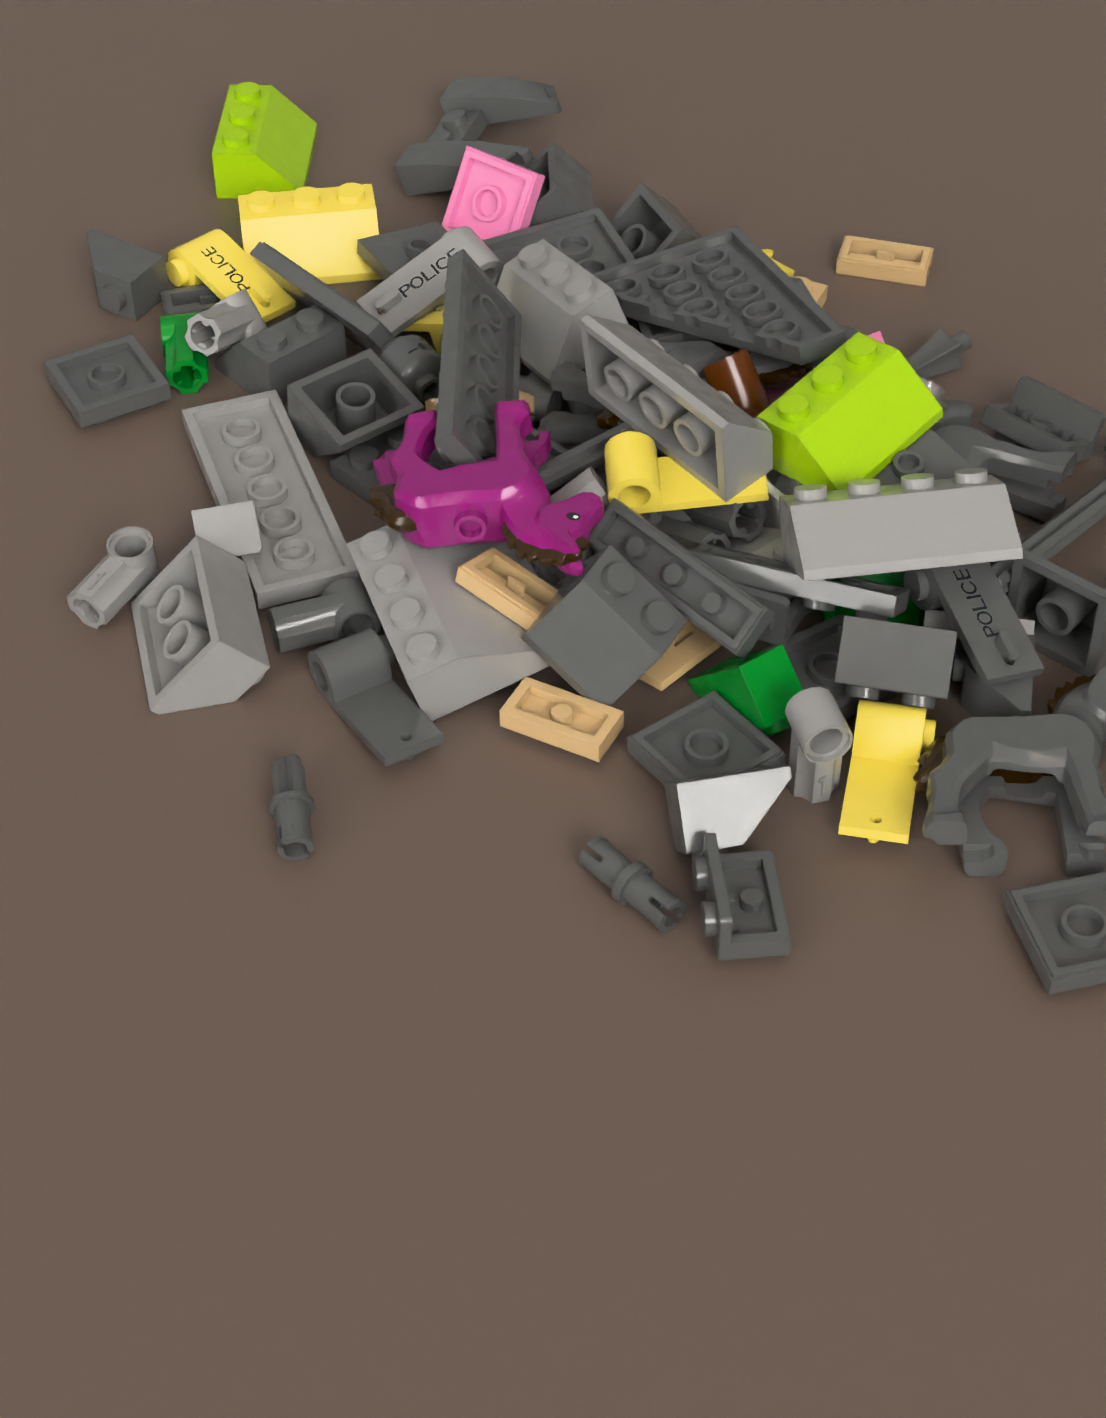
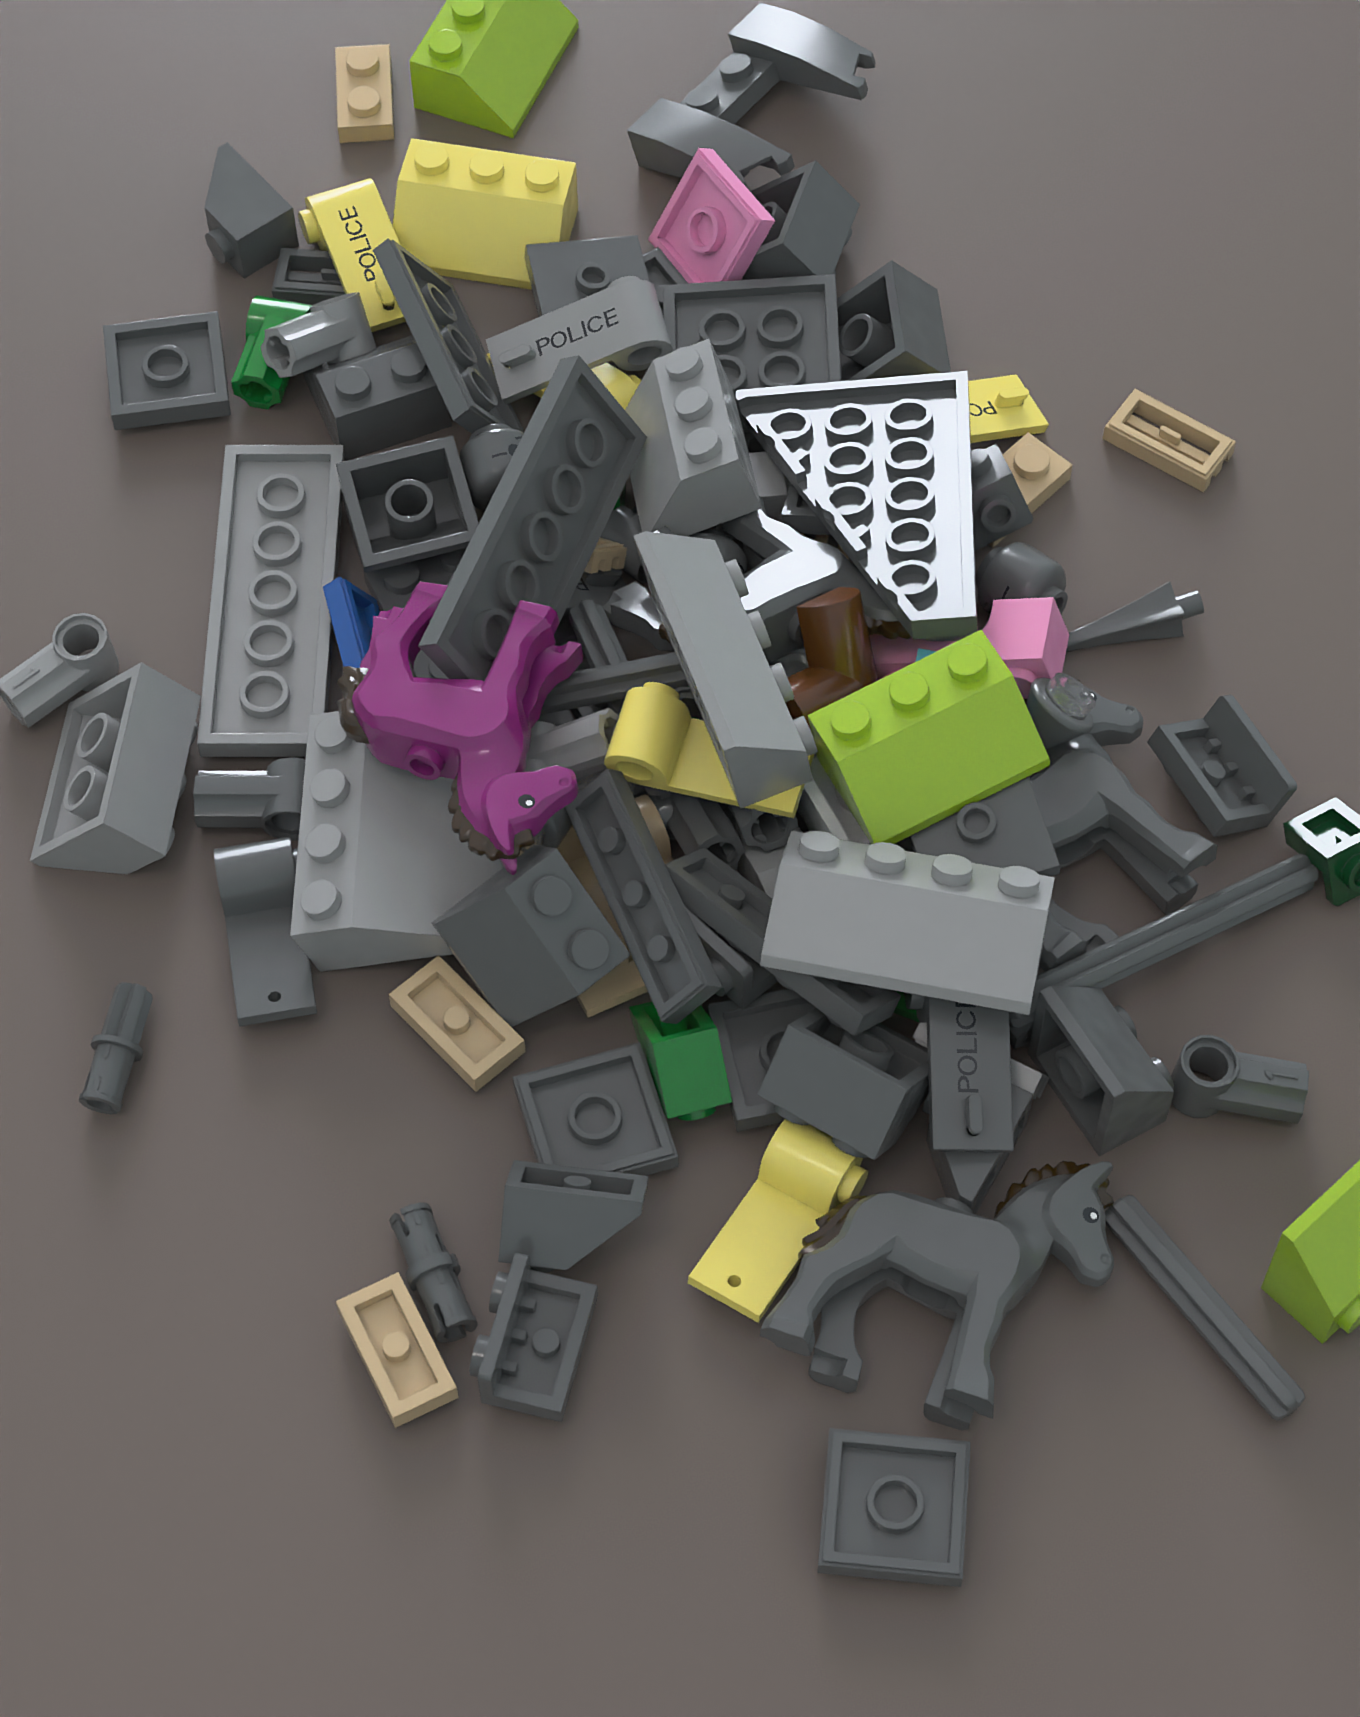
camera: 20 degrees right, 15 degrees up
(176, 194) = (364, 93): none -> tan plate
(230, 527) = (194, 646): light grey panel -> none
(347, 494) = (351, 619): none -> blue tile
(506, 586) = (433, 852): tan tile -> none
(633, 941) = (397, 1349): none -> tan plate
(817, 743) = (703, 1164): light grey piece -> none

